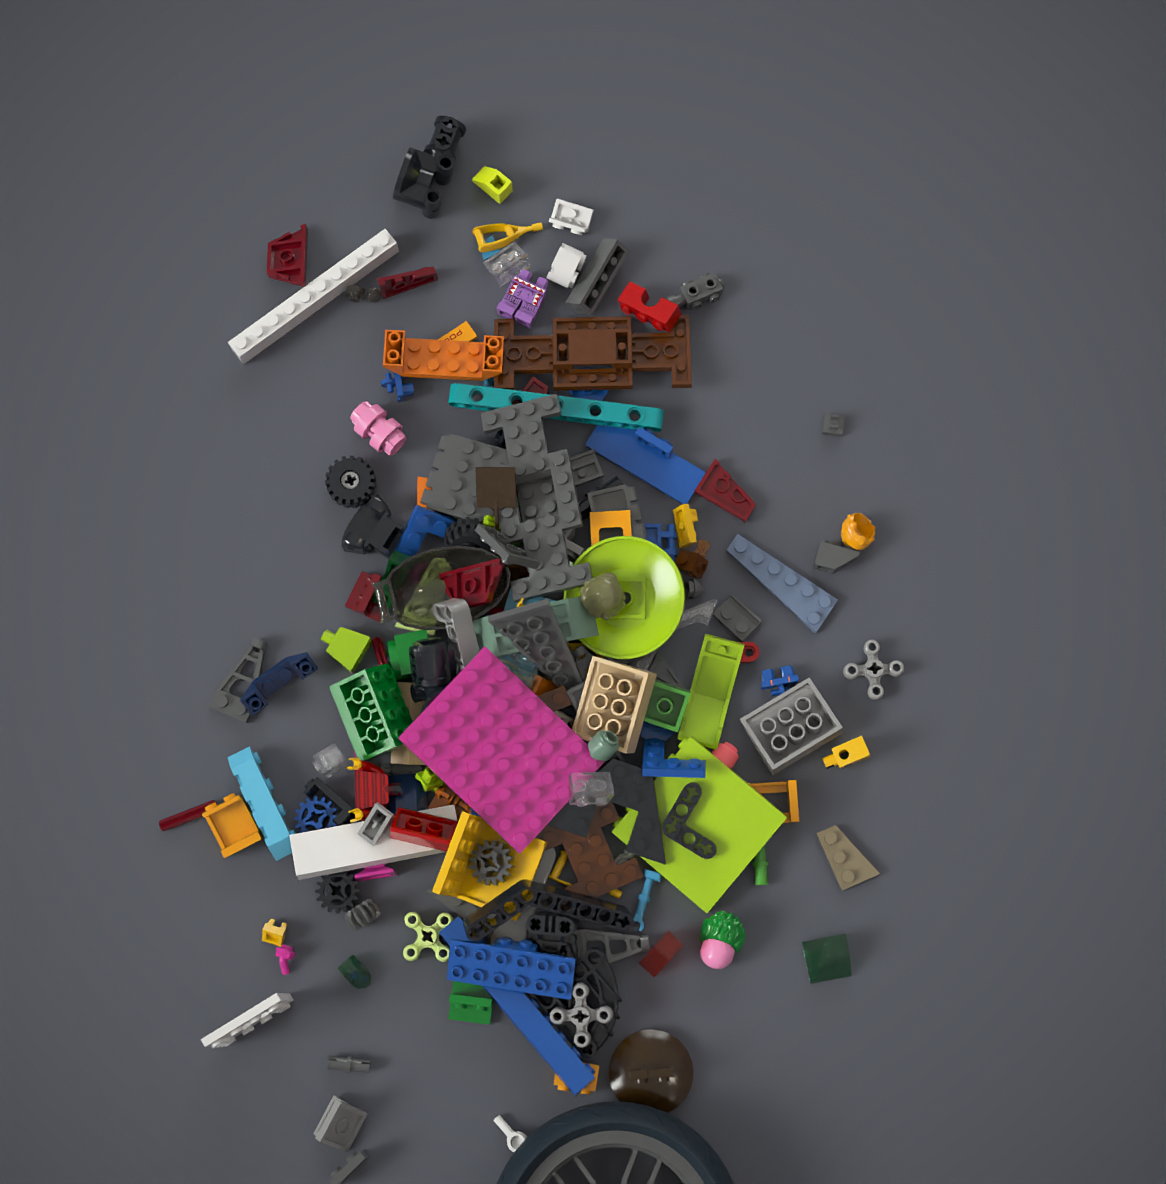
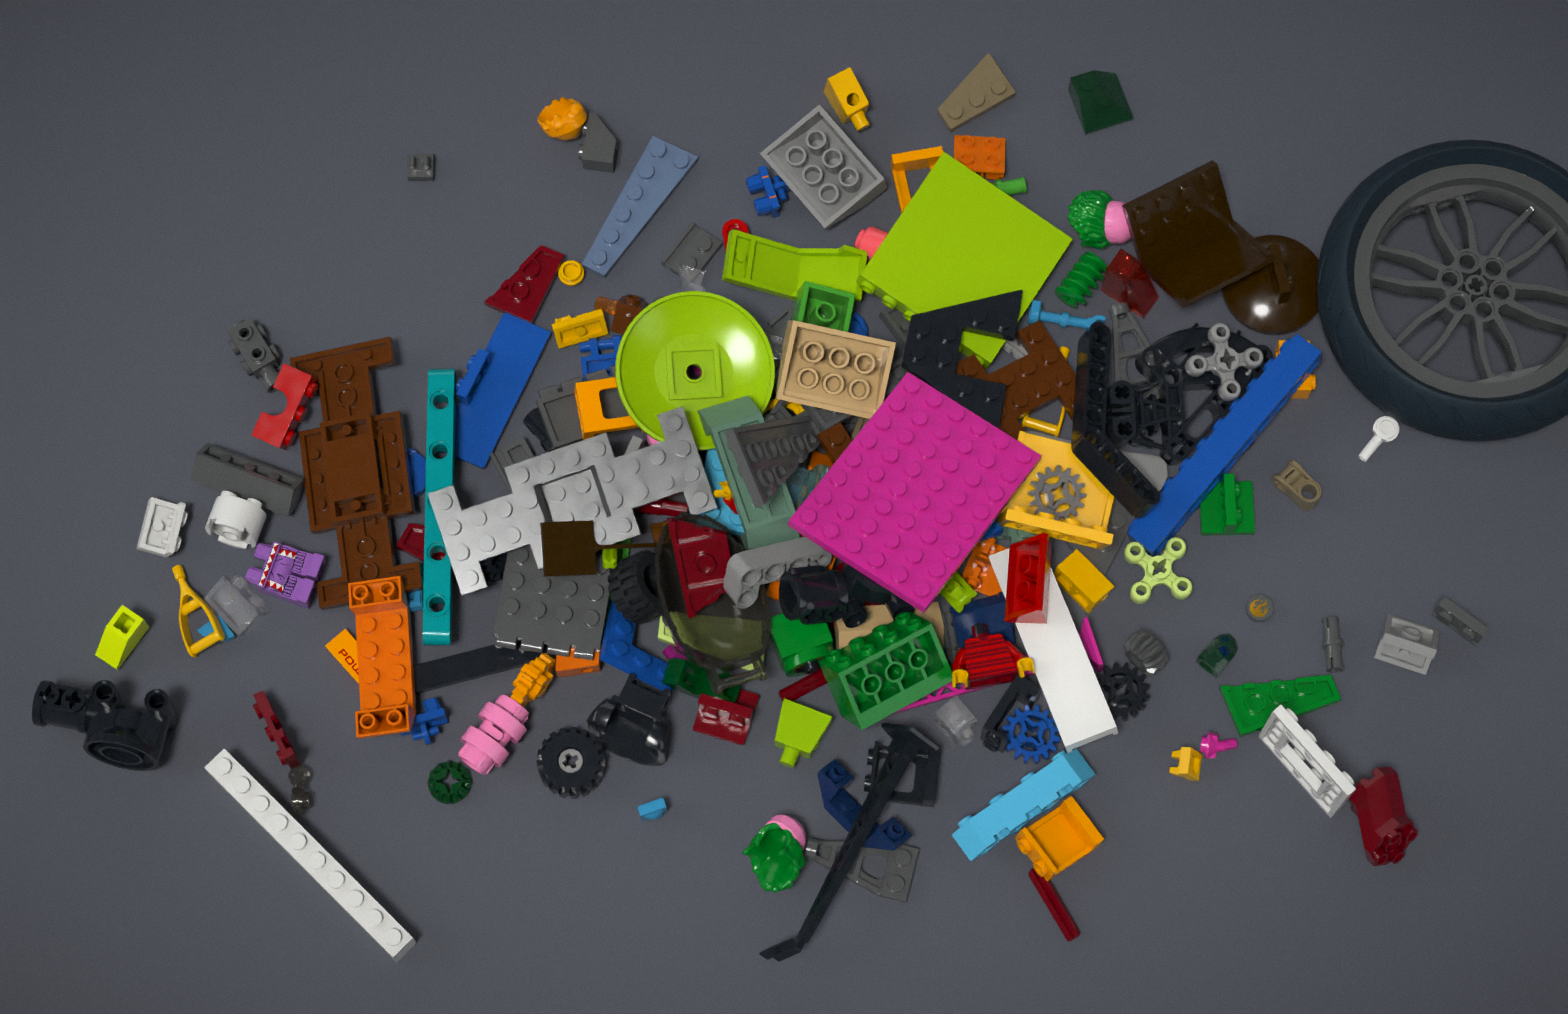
camera: 100 degrees left, 5 degrees down
(203, 1075) = (1382, 817): none -> dark red brick
(257, 619) = (778, 853): none -> green hair
(289, 257) = (257, 898): dark red wing -> none
(299, 735) = (924, 780): none -> black window
(306, 534) = (652, 810): none -> dark azure tile
(310, 1005) = (1253, 703): none -> green wing
(314, 717) = (902, 749): none -> black piece
(347, 389) = (457, 791): none -> dark green gear
(376, 824) = (1033, 638): light grey slope -> none
(387, 1012) = (1259, 608): none -> dark grey tile
(412, 459) = (533, 679): none -> light orange gear
(424, 879) = (1082, 581): none -> yellow hinge
(434, 413) = (470, 666): none -> black tile
(481, 1059) = (1293, 482): none -> dark tan piece
(501, 546) = (644, 532): dark grey wing -> none
(511, 967) = (1181, 450): blue bracket -> none
(590, 788) = (946, 378): clear bracket -> none
(603, 596) = (699, 389): olive hair -> none
(603, 745) = (891, 368): sand green head -> none
(657, 766) = (906, 307): blue plate -> none
(673, 917) = (1081, 279): none -> green piece
(682, 829) = (976, 273): black beam -> none
(689, 1010) = (1190, 237): none -> dark brown bracket
(732, 525) = (571, 273): none -> yellow plate
(791, 852) = (981, 154): none -> orange hinge
(872, 660) = (745, 82): light grey gear -> none

